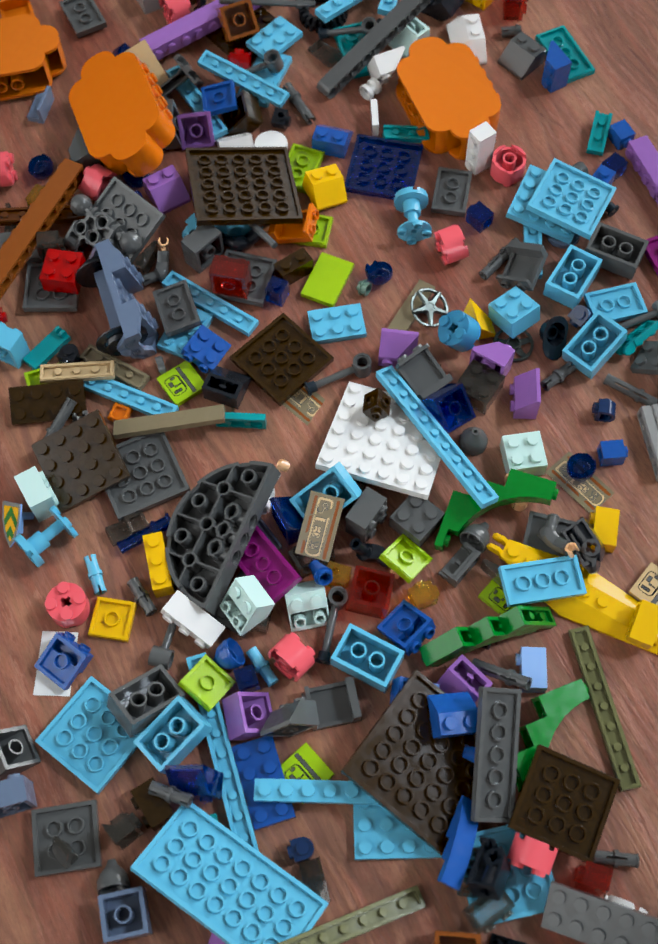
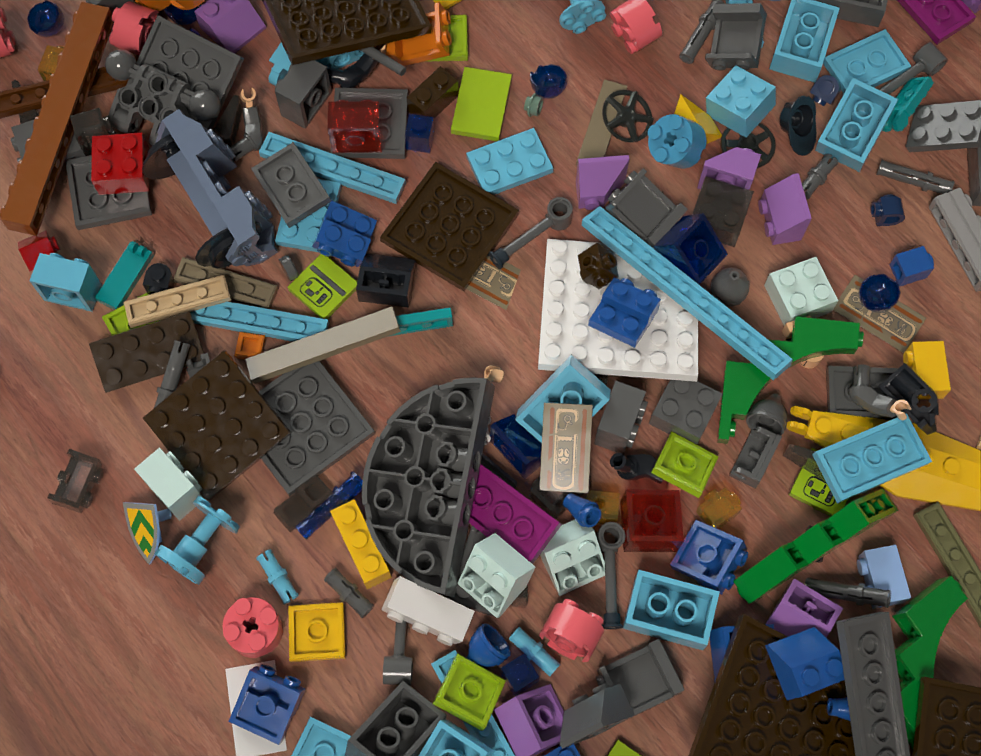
camera: 15 degrees left, 5 degrees up
(387, 440) = (625, 311): none -> blue plate

